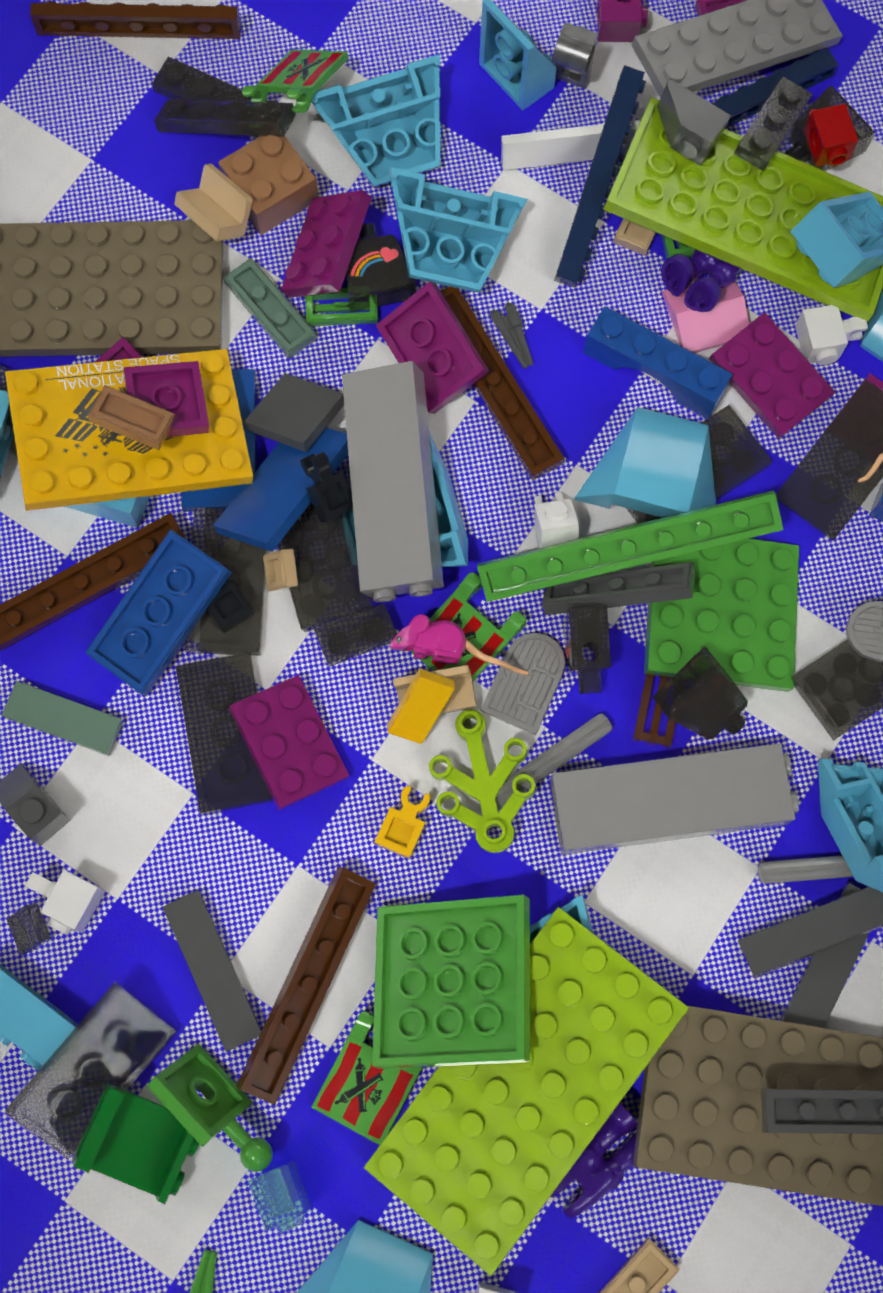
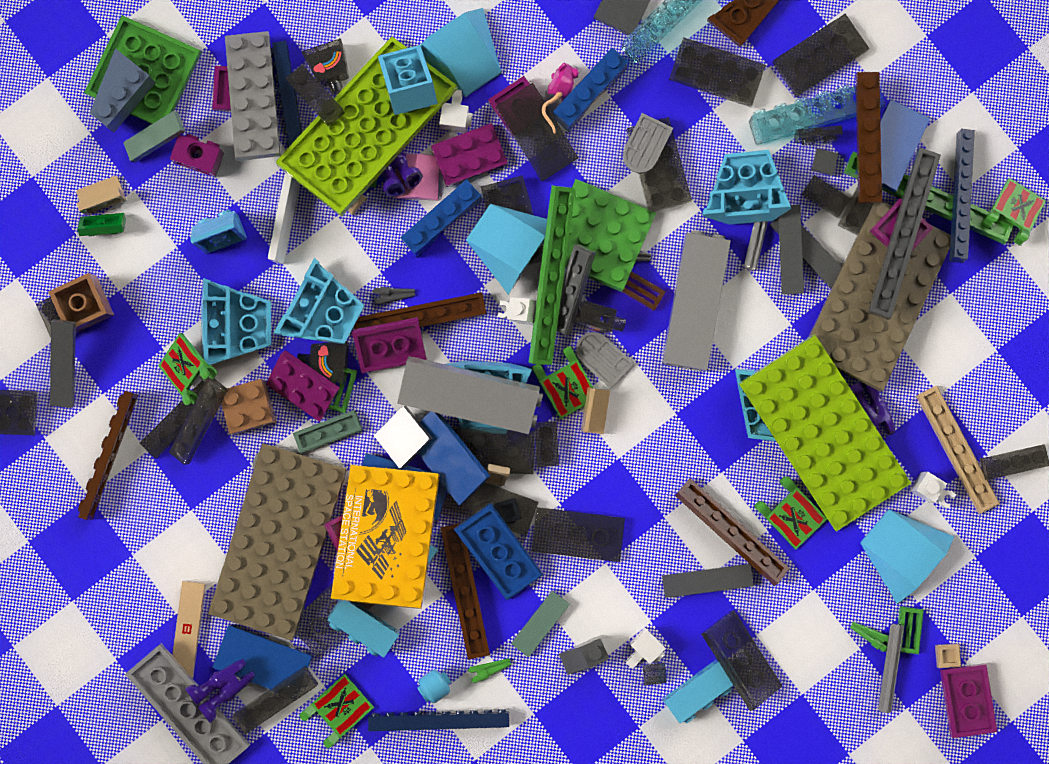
camera: 70 degrees left, 10 degrees up
(131, 417) = (388, 532): medium nougat tile -> none
(135, 1143) = (787, 646): green panel -> none
(172, 388) = (378, 509): magenta plate -> none
(208, 1117) = (786, 600): bright green plate -> none
(216, 205) = (255, 444): tan panel -> none
(280, 1197) = (839, 578): clear light blue brick -> none
(288, 742) = (596, 501): magenta plate -> none
(330, 492) = (464, 431): black plate -> none
(402, 828) = (664, 454): yellow plate -> none
(420, 706) = (602, 421): yellow tile -> none
(441, 641) = (568, 397): dark pink animal -> none
(452, 983) = (759, 454): bright green plate -> none
(484, 787) = (656, 401): lime plant -> none
(557, 756) = (652, 362): light grey axle -> none
(574, 54) = (229, 196): flat silver plate -> none
(599, 176) = (312, 208): dark blue piece -> none
(690, 122) = (304, 146): dark grey slope -> none
(703, 697) = (648, 265): clear smoke torso -> none
(830, 135) = (339, 66): red brick -> none

